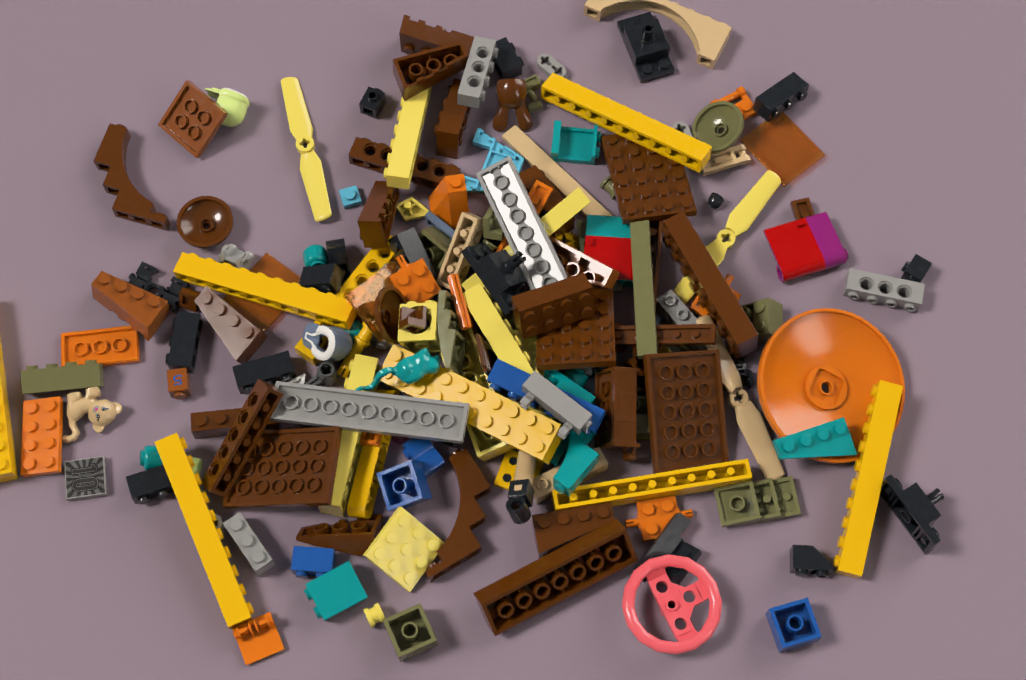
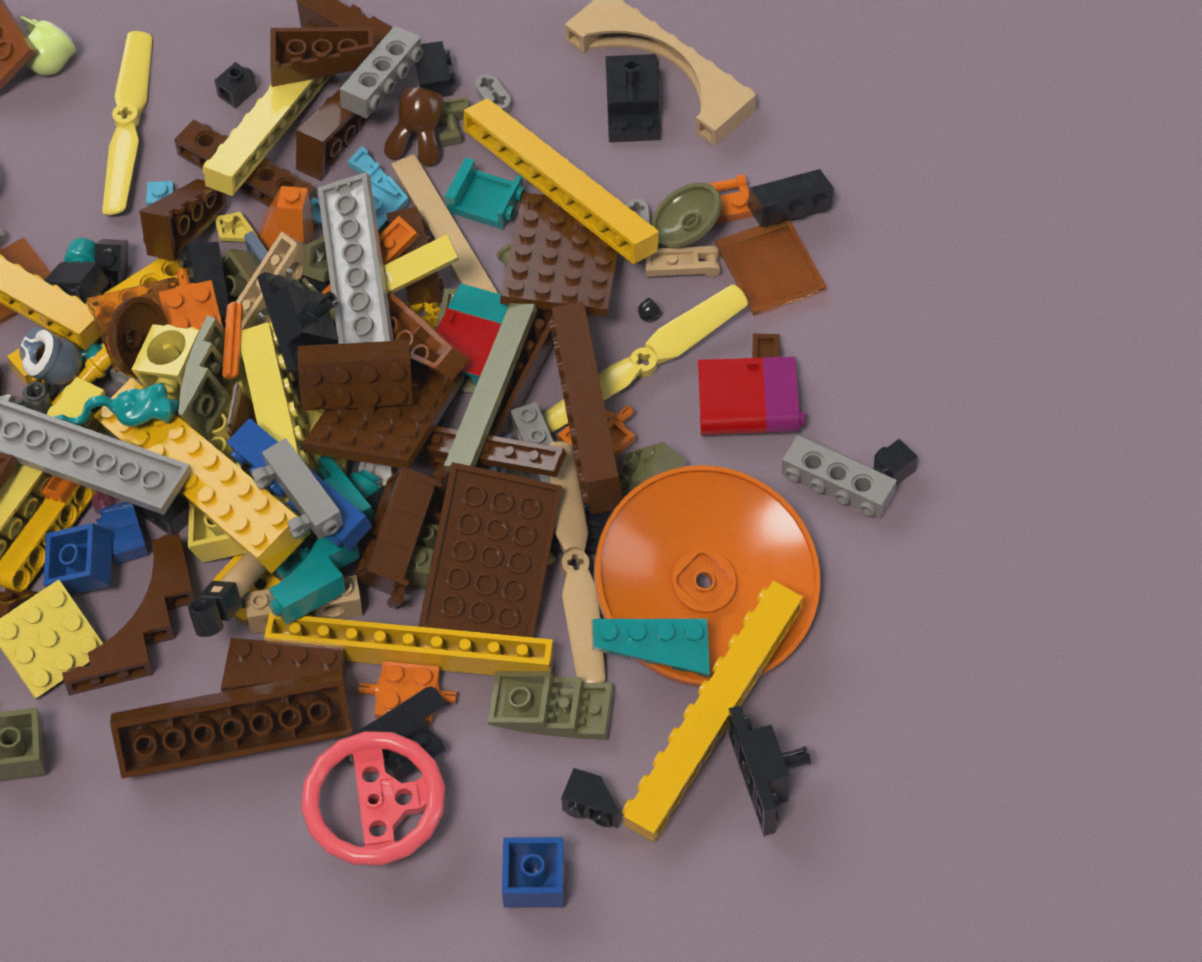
camera: 20 degrees right, 10 degrees down
(412, 319) = (157, 344): reddish brown panel -> none

